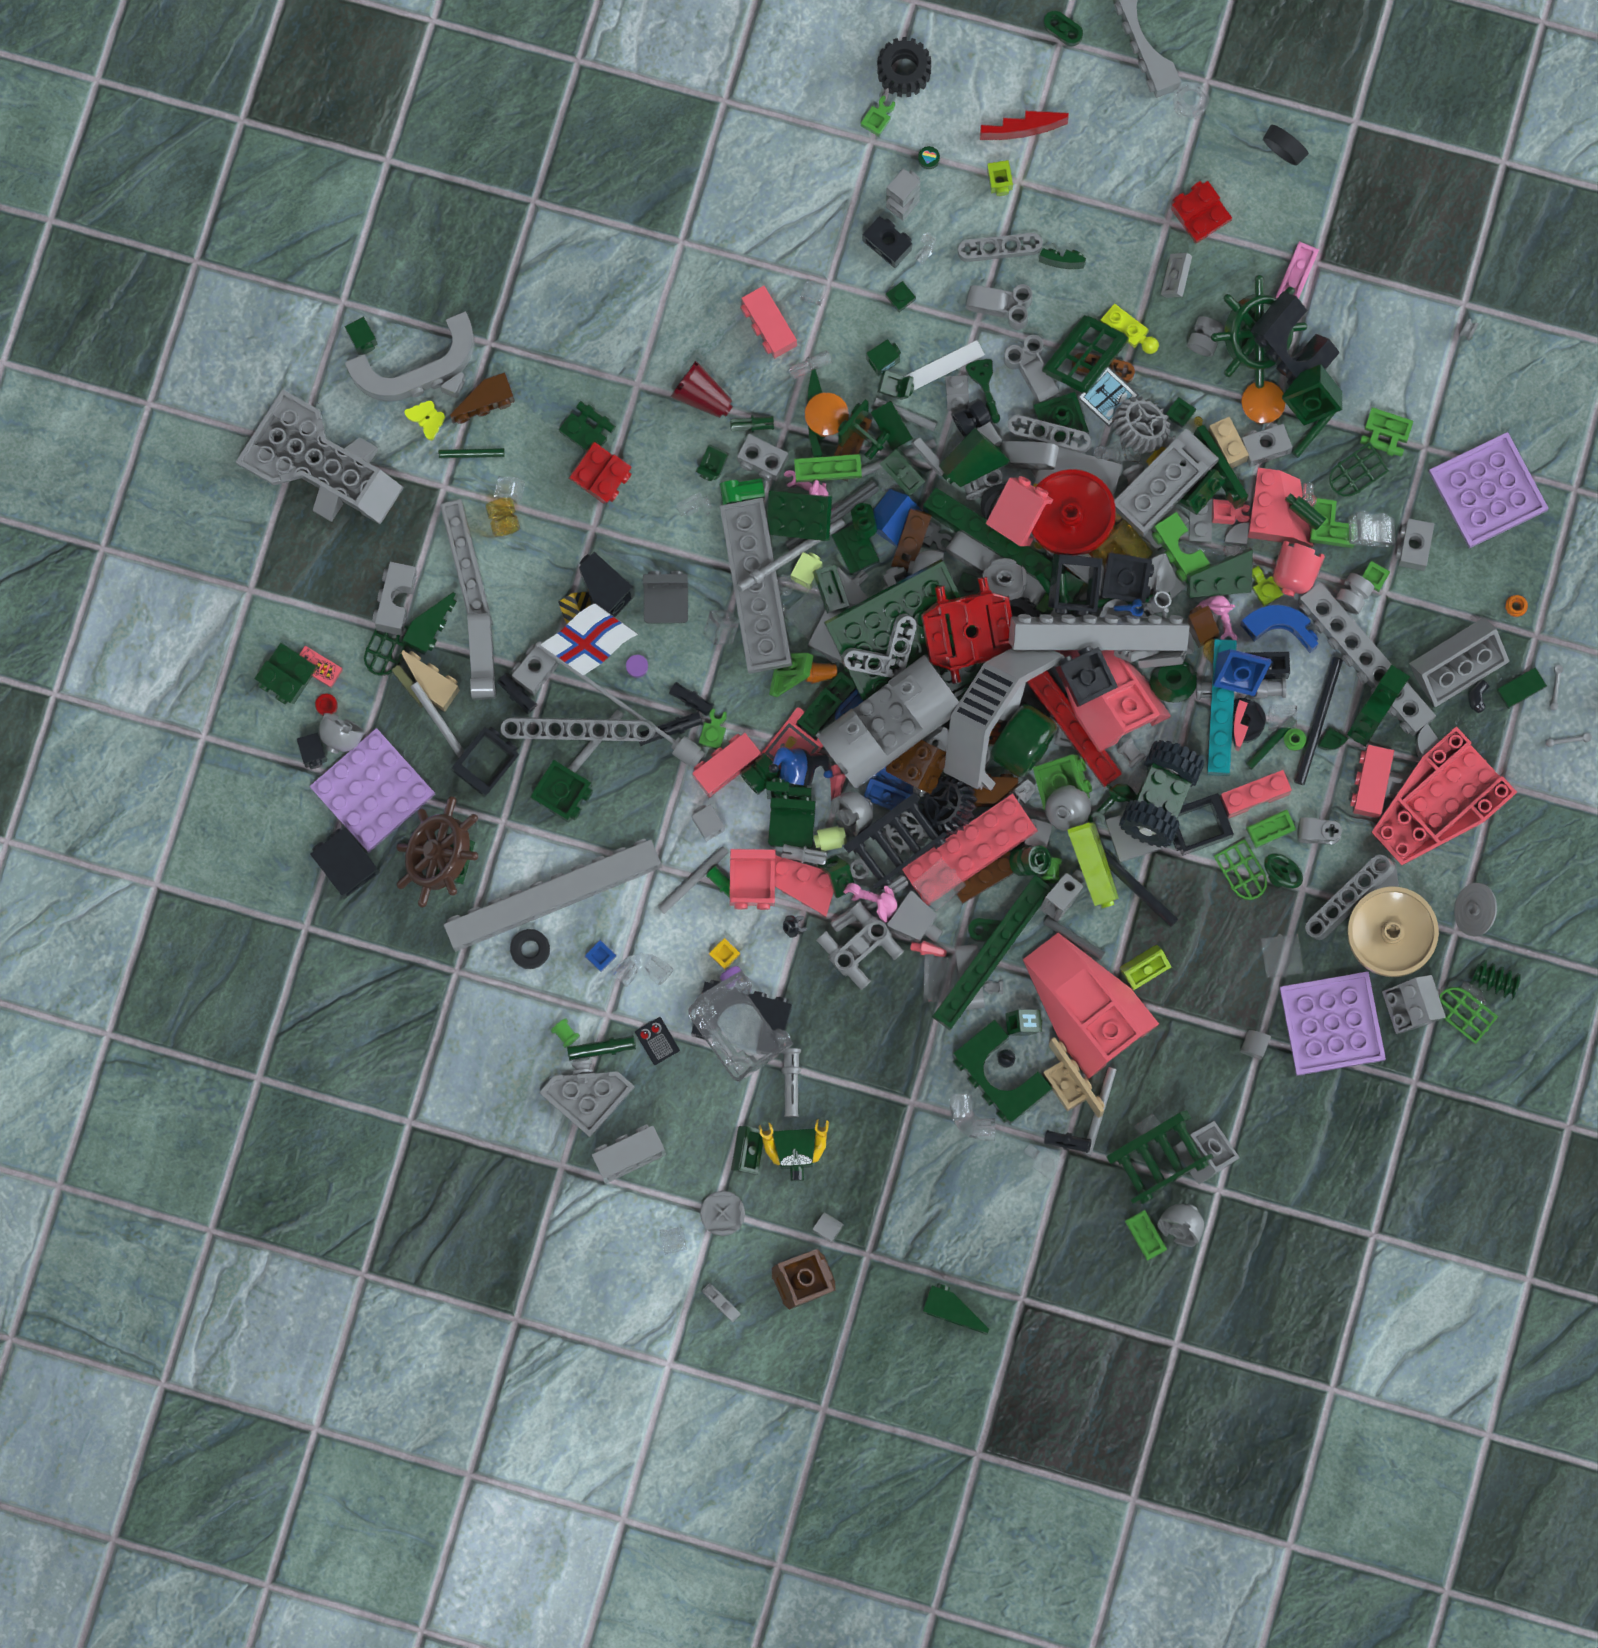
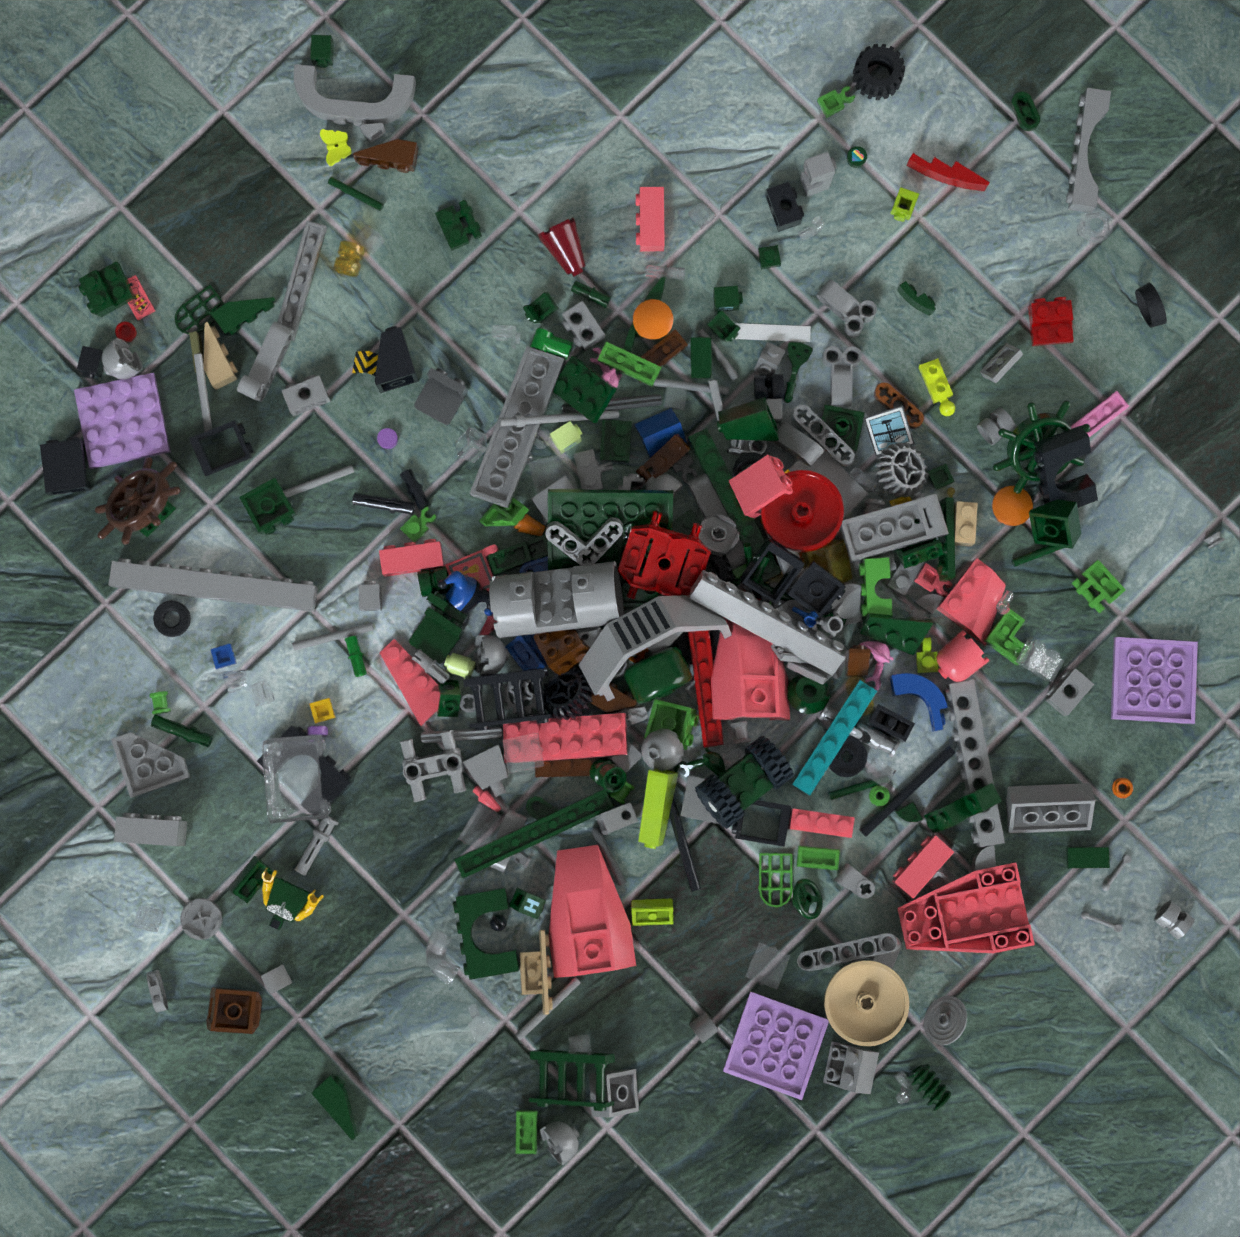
camera: 25 degrees right, 5 degrees up
(339, 474) = (239, 151): light grey piece -> none
(397, 579) = (237, 263): light grey arch -> none
(517, 693) = (279, 407): black pin -> none
(568, 733) = (300, 463): light grey beam -> none
(582, 1067) = (157, 738): light grey bush -> none
(586, 644) = (357, 398): flag -> none
(600, 473) = (447, 266): red plate -> none
(657, 1041) = (230, 749): black sticker -> none
(752, 878) = (377, 664): coral panel -> none
(791, 926) = (387, 719): black plate -> none
(831, 589) = (575, 463): plate -> none
(848, 427) = (663, 340): dark green plate -> none
(864, 520) = (634, 422): dark green plate -> none
(885, 901) = (472, 743): bright pink piece -> none
(903, 471) = (688, 400): dark green hinge -> none
(999, 243) = (873, 257): light grey beam -> none
(1067, 1141) = (507, 1019): black pin -> none
(1086, 675) = (736, 652): black plate -> none
(1101, 365) = (897, 403): dark green piece -> none
(1239, 730) = (837, 765): coral slope -> none
(1240, 671) = (864, 719): blue slope -> none
(1279, 446) = (1006, 546): light grey brick -> none
(1305, 511) = (994, 615): dark green cylinder -> none
(1355, 591) = (997, 703): light grey wheel -> none
(1359, 463) = (1064, 609): dark green window -> none
(1376, 575) = (1020, 699): bright green plate -> none
(1474, 1013) = (896, 1104): bright green window -> none
(1475, 696) = (1046, 844): black arm -> none

